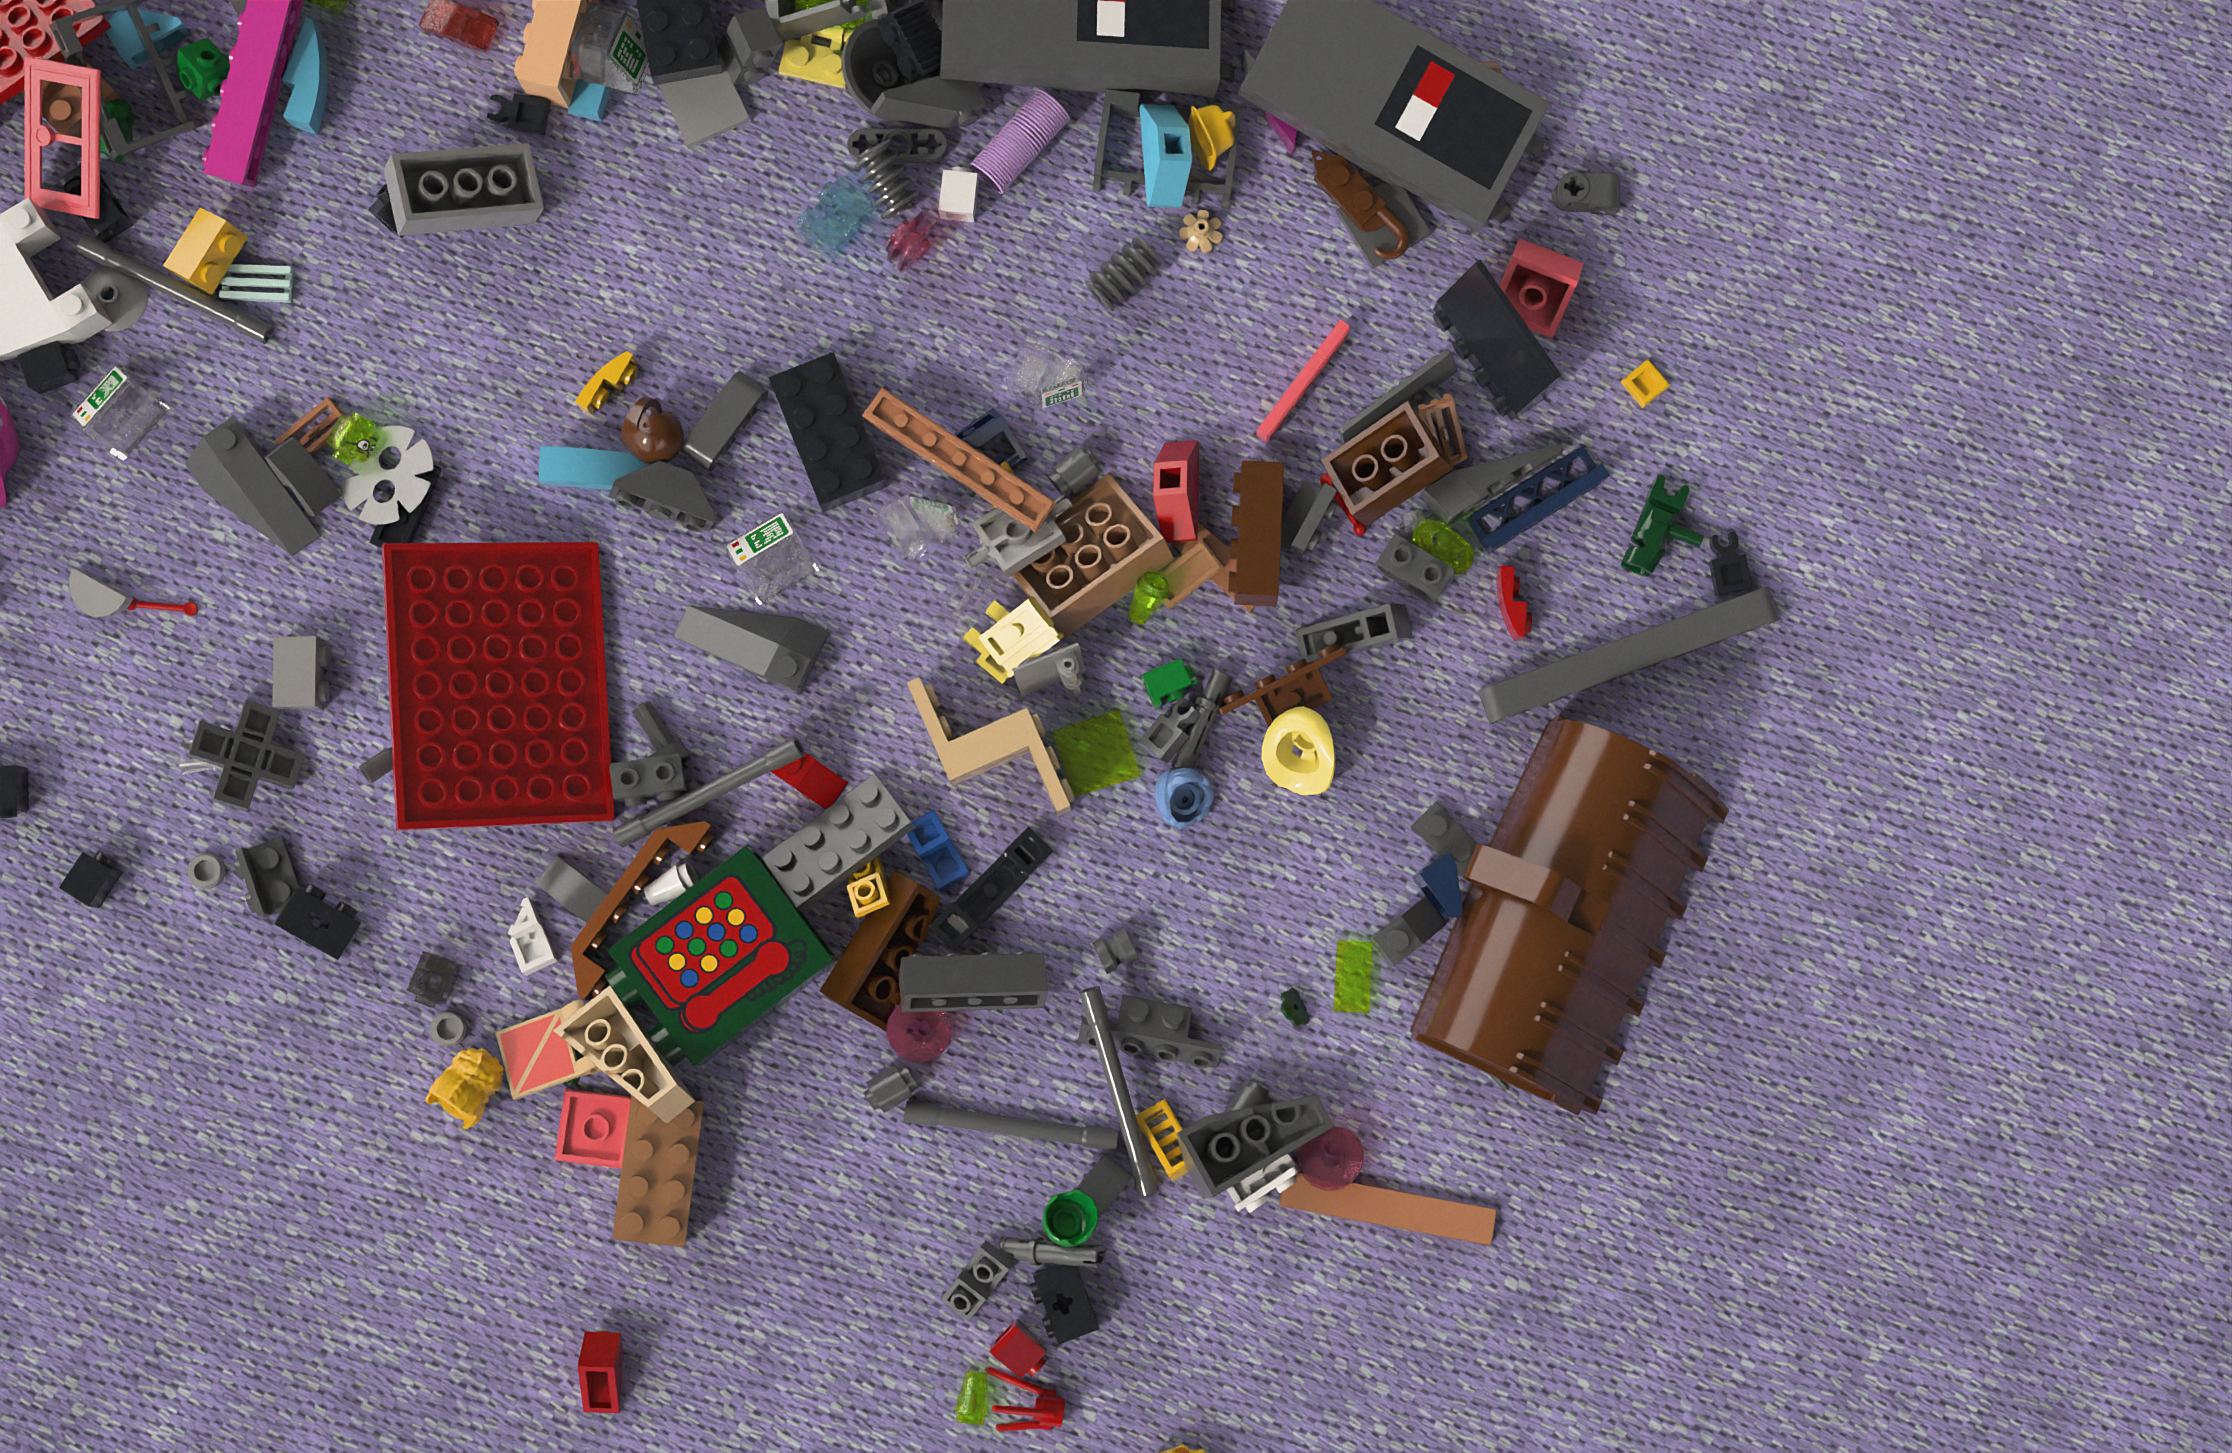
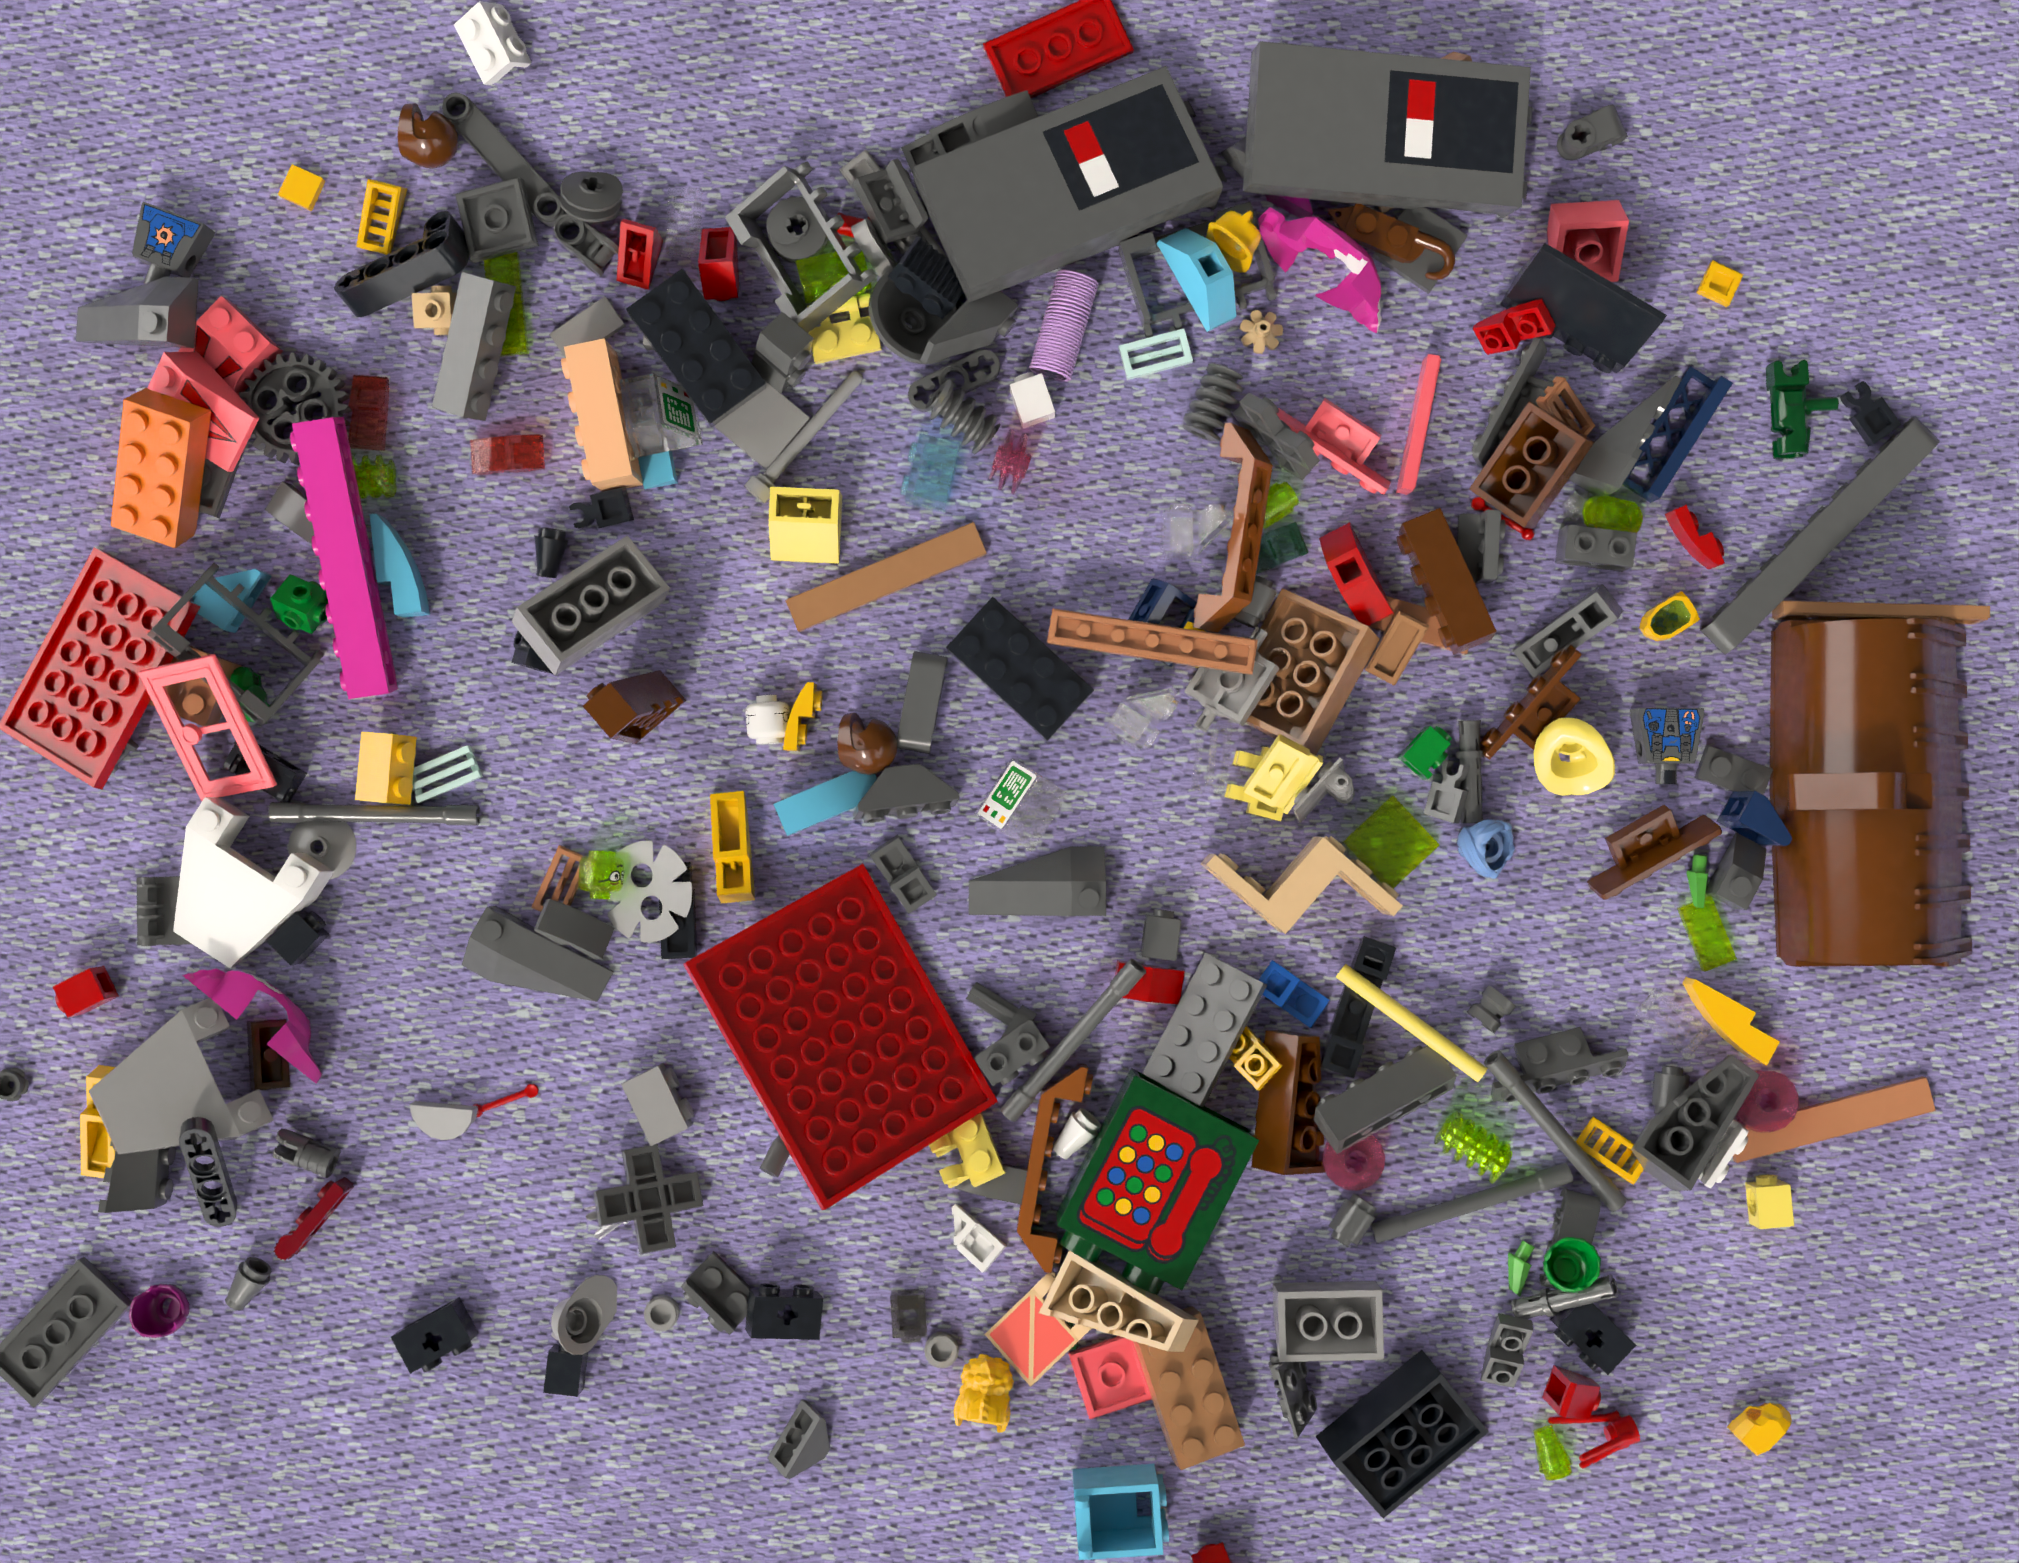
camera: 15 degrees left, 5 degrees up
(119, 412) = (380, 948): clear slope -> none
(135, 835) = (585, 1315): none -> light grey piece
(276, 1054) = (801, 1442): none -> dark grey slope
(453, 127) = (549, 549): none -> black cone
(454, 295) = (633, 705): none -> reddish brown wedge
(485, 472) = (732, 847): none -> yellow slope
(527, 1252) = (1108, 1512): none -> medium azure container
(571, 854) = (976, 1150): none -> light yellow plate
(574, 370) = (767, 719): none -> white head
(630, 570) = (903, 874): none -> dark grey slope
(677, 157) = (760, 485): none -> light grey piece
(696, 210) = (805, 524): none -> light yellow slope
(748, 293) = (886, 577): none -> medium nougat tile
(757, 1220) = (1295, 1399): none -> dark grey hinge
(819, 1169) = (1328, 1321): none -> light grey slope
(840, 737) = (1161, 935): none -> dark grey brick
(840, 1314) = (1401, 1434): none -> black slope
(1027, 1208) = (1519, 1267): none -> bright green bar
(1032, 925) = (1412, 1023): none -> light yellow piece
(1037, 1072) = (1474, 1144): none -> clear neon green piece
(1093, 220) = (1147, 342): none -> light aqua tile
(1093, 400) = (1244, 545): none -> dark orange slope
(1111, 433) = (1280, 547): none -> clear green slope
(1133, 391) = (1279, 503): none -> clear neon green brick
(1148, 595) = (1373, 683): clear neon green cone -> none
(1168, 339) = (1290, 449): none -> dark grey plate
(1223, 360) = (1342, 441): none -> coral bracket
(1270, 158) = (1362, 286): none -> dark pink animal
(1291, 1256) = (1769, 1202): none -> light yellow brick
(1294, 1008) = (1669, 985): dark green plant -> none
(1332, 867) = (1649, 846): none -> reddish brown bracket
(1334, 1068) = (1731, 1021): none -> yellow slope
(1367, 922) = (1698, 880): none -> bright green bar
(1398, 775) = (1666, 738): none -> torso
(1431, 330) = (1507, 328): none -> red slope
(1451, 664) = (1669, 617): none -> rock
(1728, 789) = (1852, 611): none -> medium nougat tile

